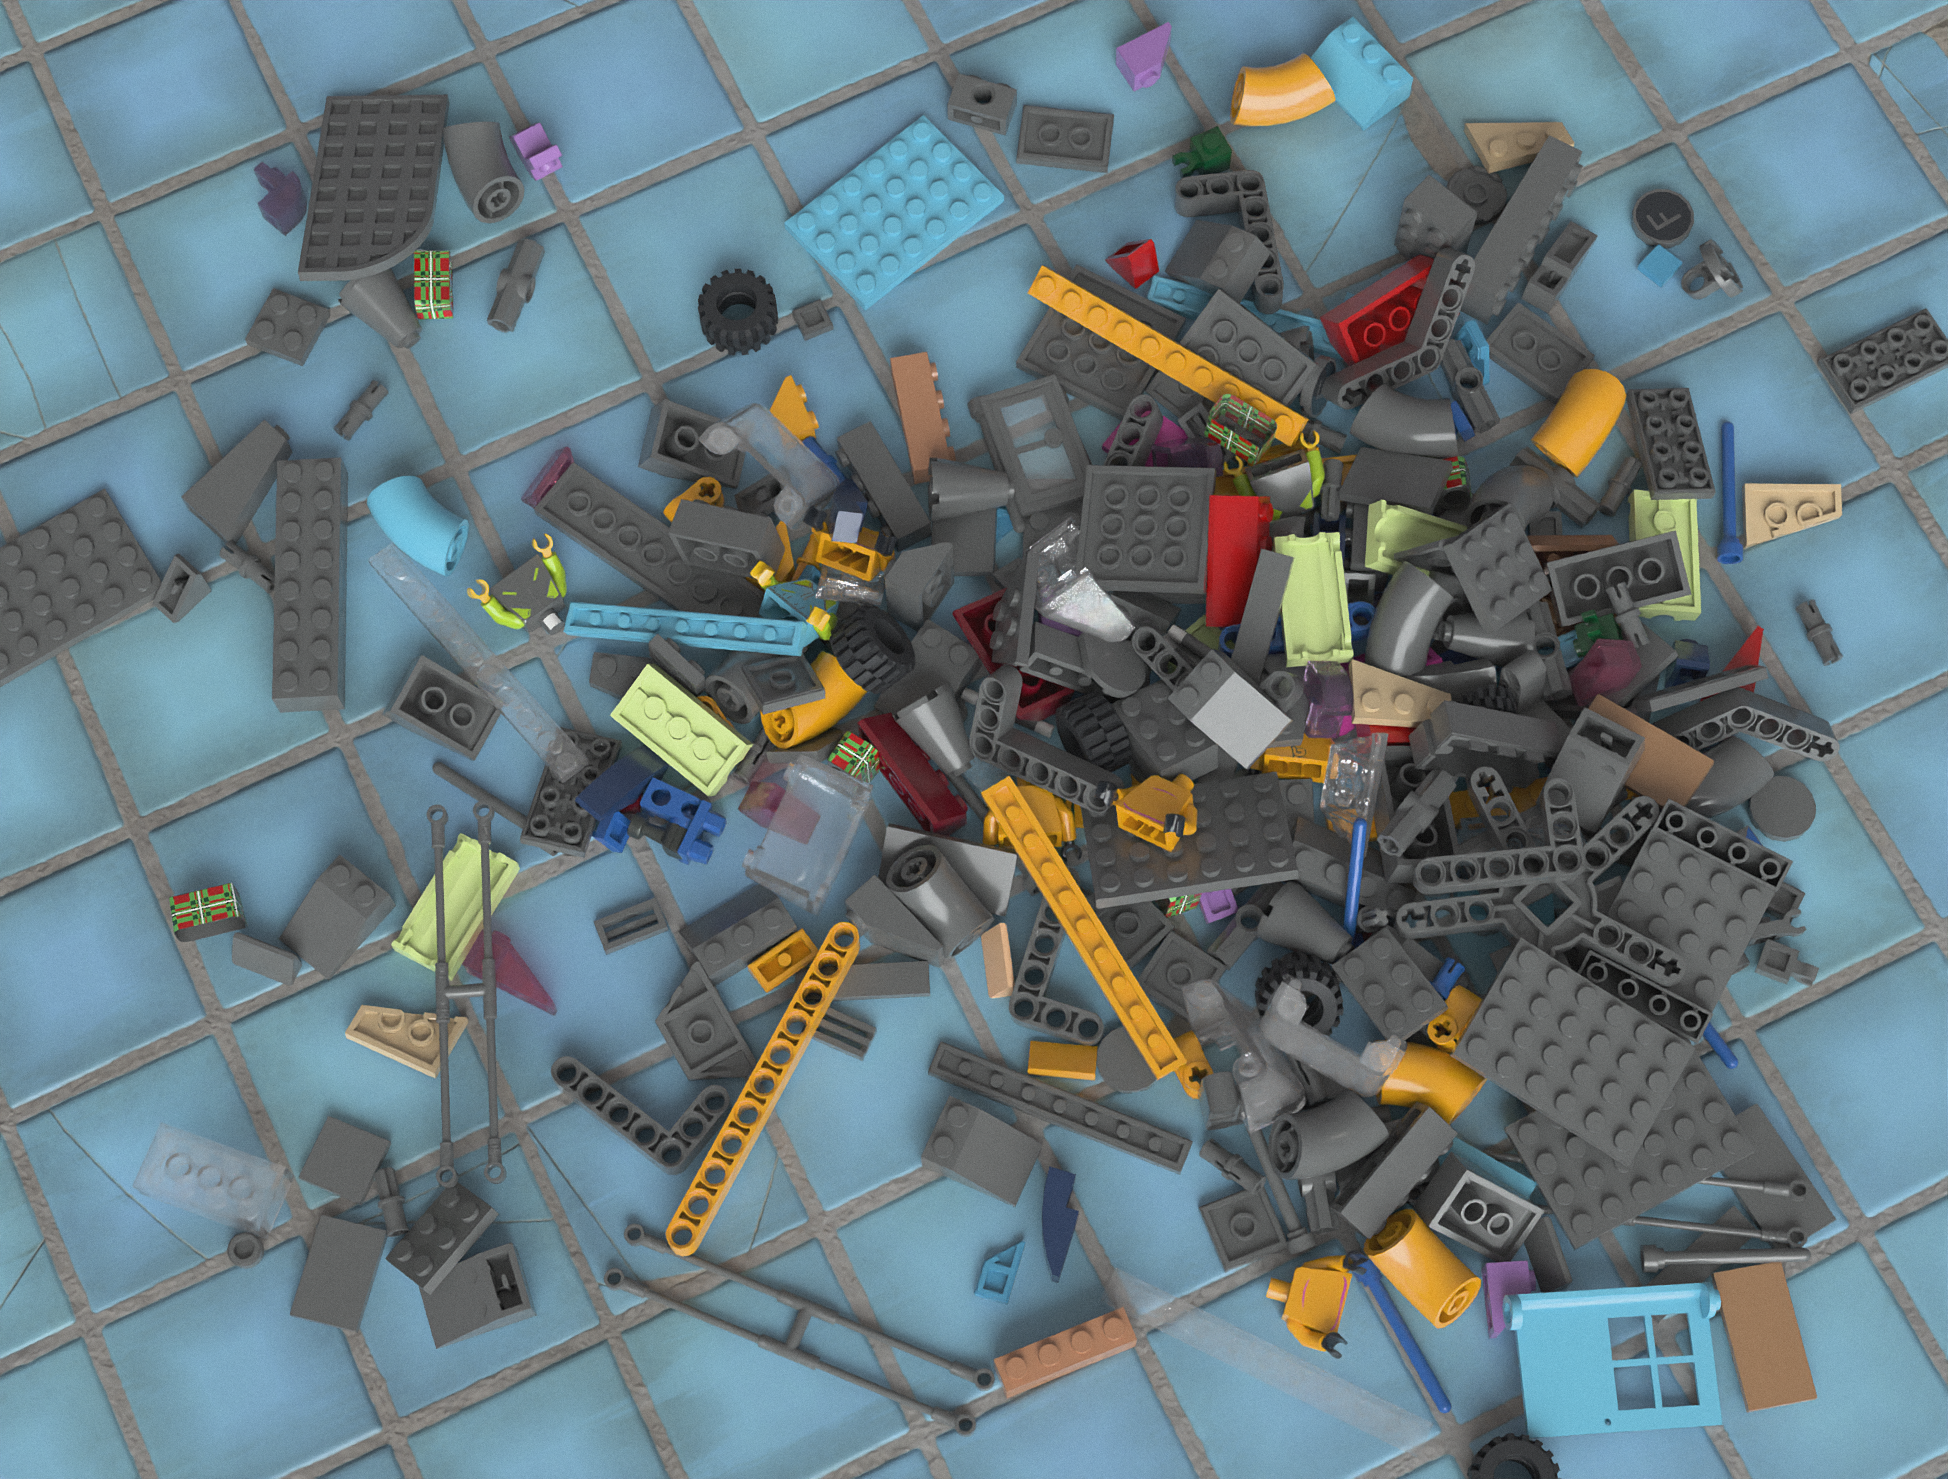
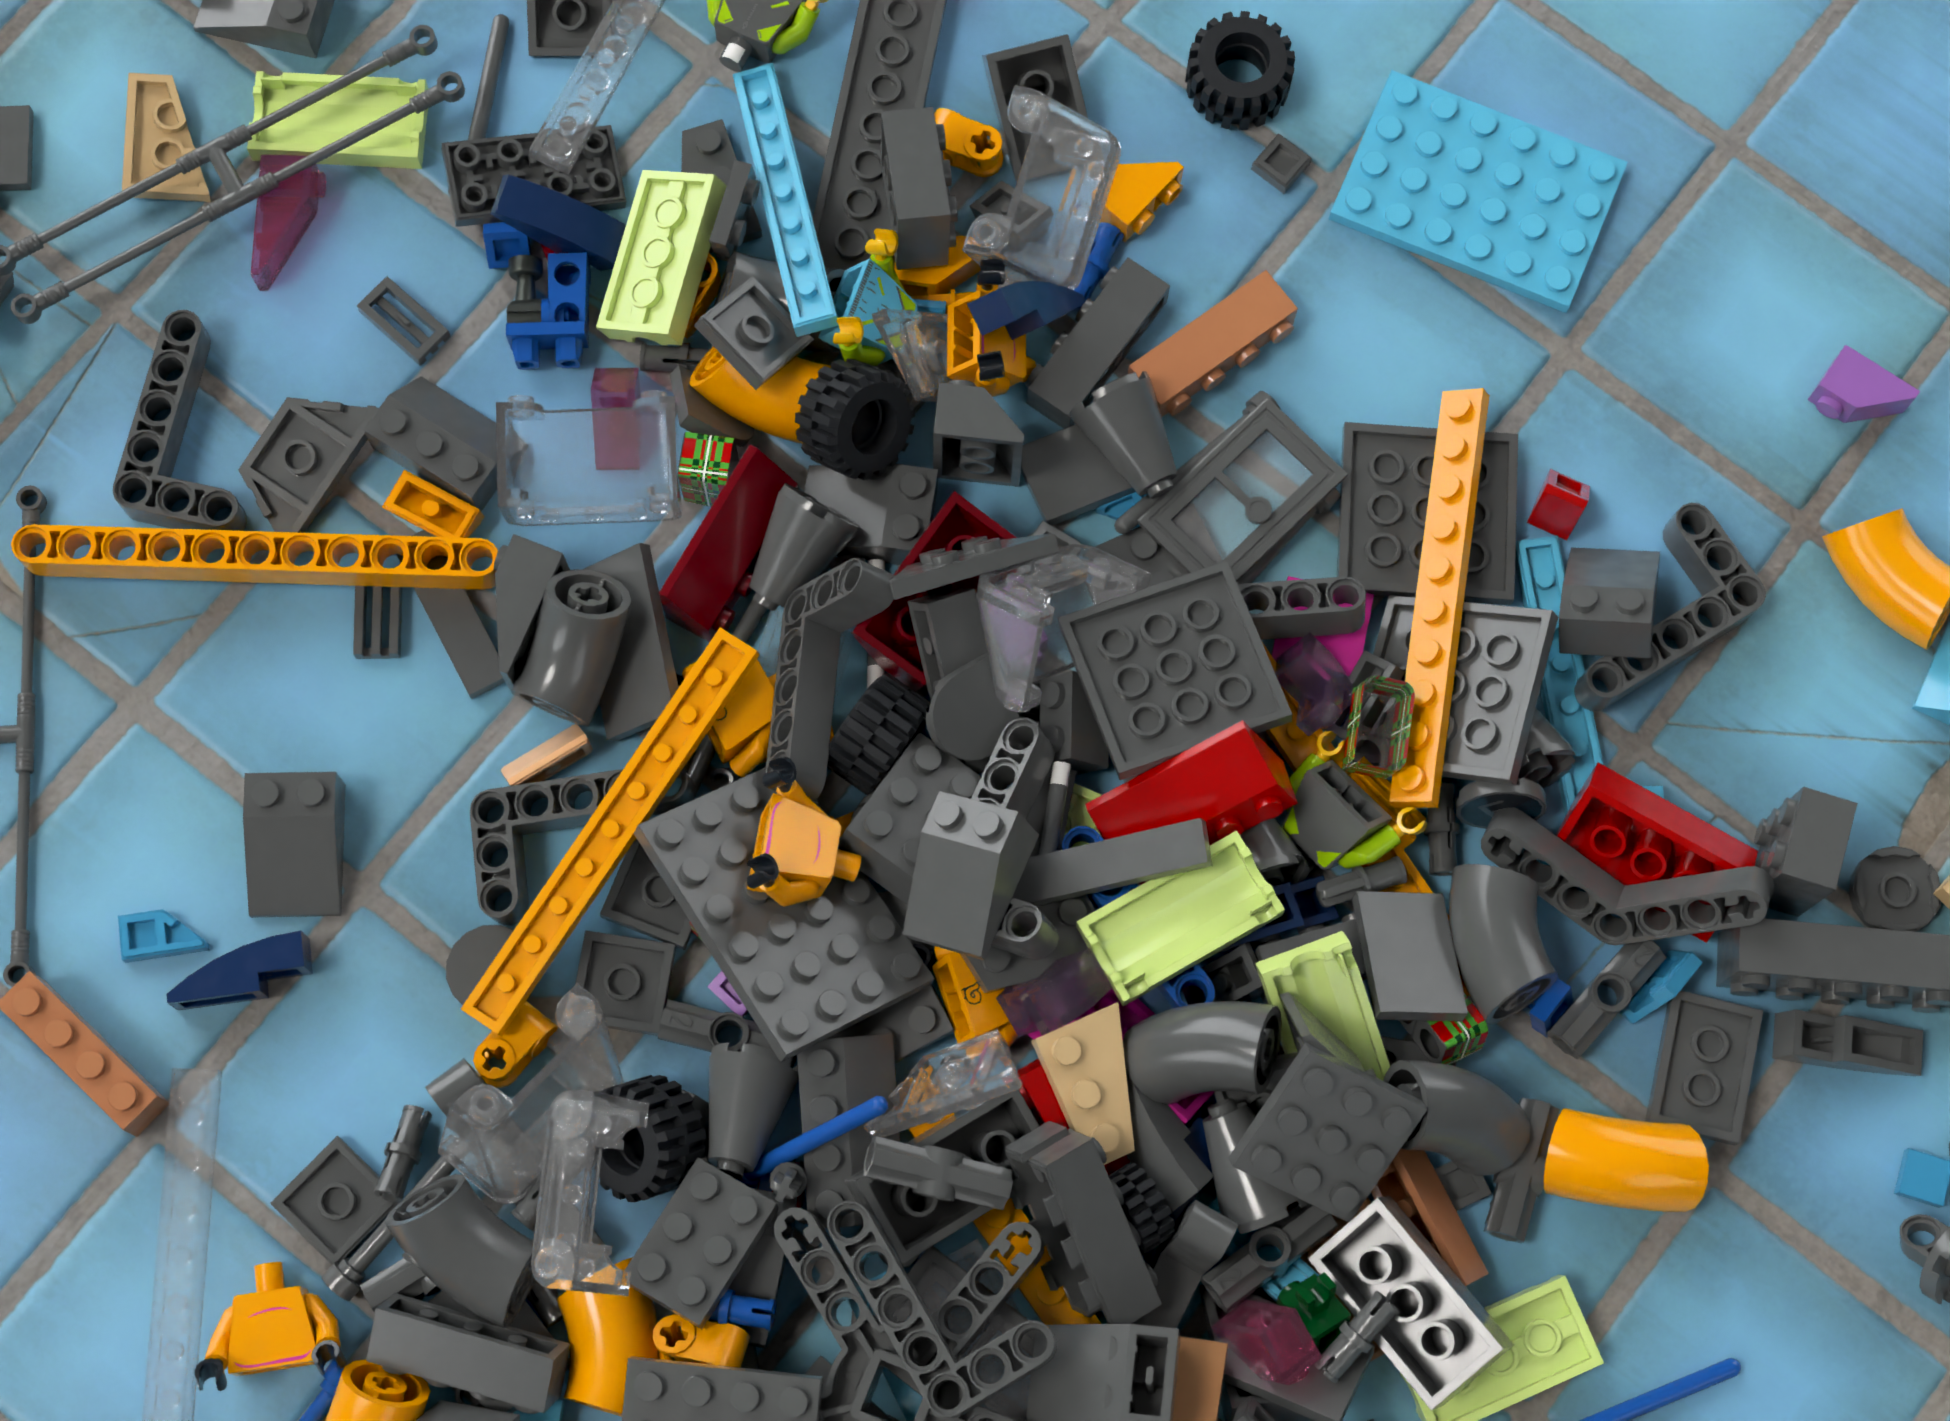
camera: 60 degrees right, 5 degrees up
(991, 116) = (1674, 245): dark grey brick -> none
(1060, 1108) = (395, 916): dark grey tile -> none
(1062, 1060) = (453, 888): light orange slope -> none
(1065, 139) = (1691, 346): dark grey tile -> none
(1207, 154) = (1760, 524): dark green brick -> none
(1619, 486) = (1568, 1256): dark grey axle -> none
(1670, 444) = (1661, 1298): dark grey tile -> none

